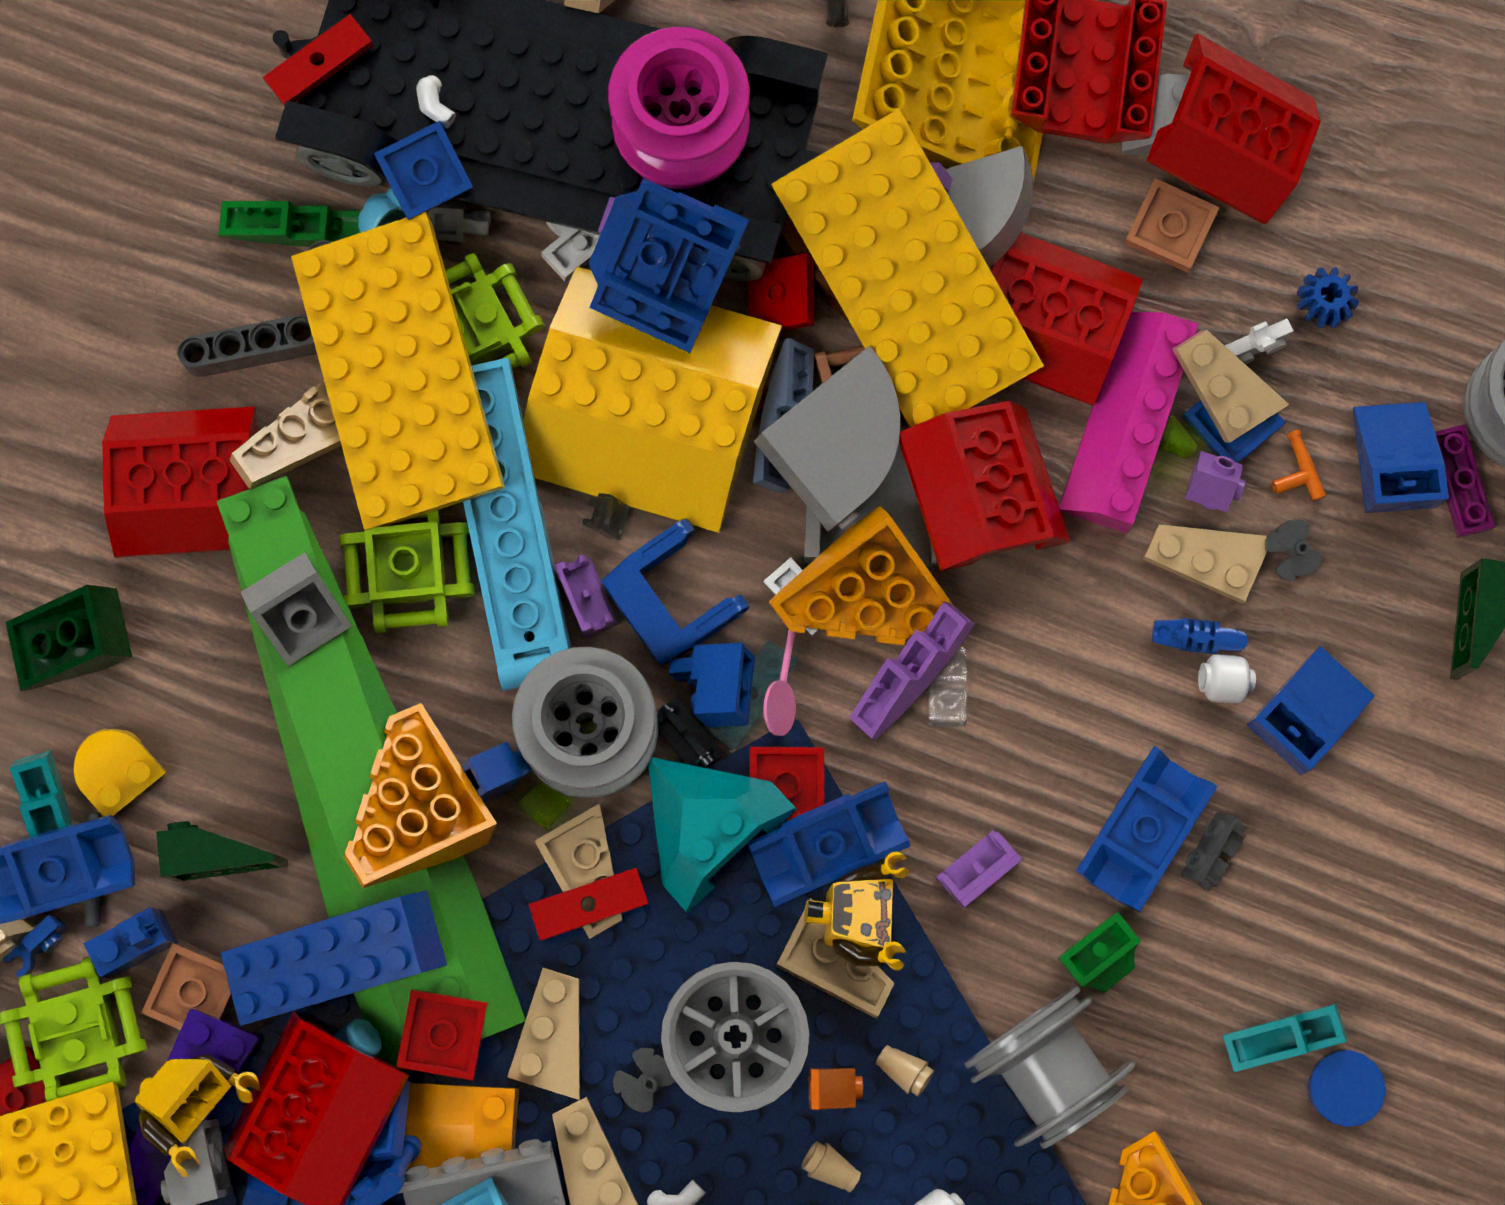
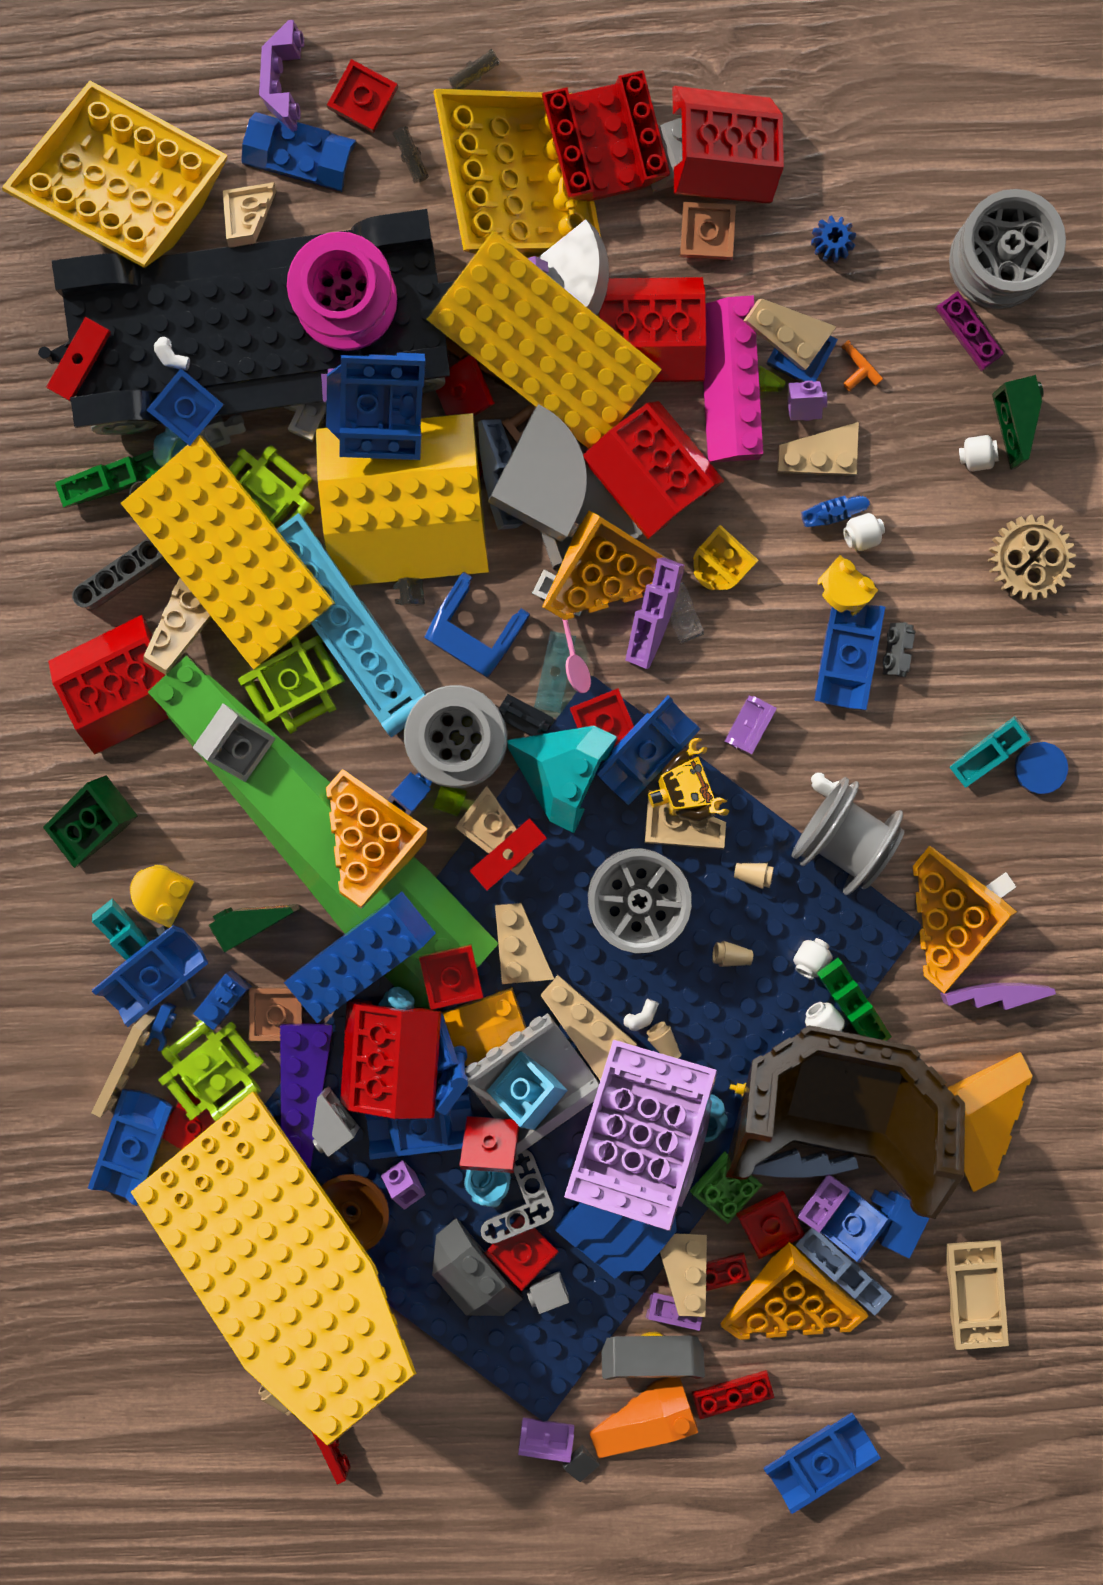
camera: 30 degrees left, 10 degrees up
(182, 1097) = (302, 1086): yellow torso -> none
(586, 595) = (418, 651): medium lavender hinge -> none
(639, 1092) = (590, 958): dark grey piece -> none
(721, 681) = (533, 672): blue hinge -> none
(834, 1088) = (714, 906): orange slope -> none
(1026, 641) = (722, 561): none -> yellow slope
(1043, 988) = (822, 784): none -> white arm
(1102, 954) = (851, 747): green slope -> none
(1176, 739) = (846, 586): none -> yellow slope
(1261, 339) = (799, 288): white plate -> none
(1292, 537) = (871, 418): dark grey piece -> none
(1311, 711) = (928, 530): blue slope -> none
(1399, 458) = (922, 332): blue slope -> none
(1416, 639) = (979, 453): none -> white head
(1450, 832) = (1015, 541): none -> tan gear

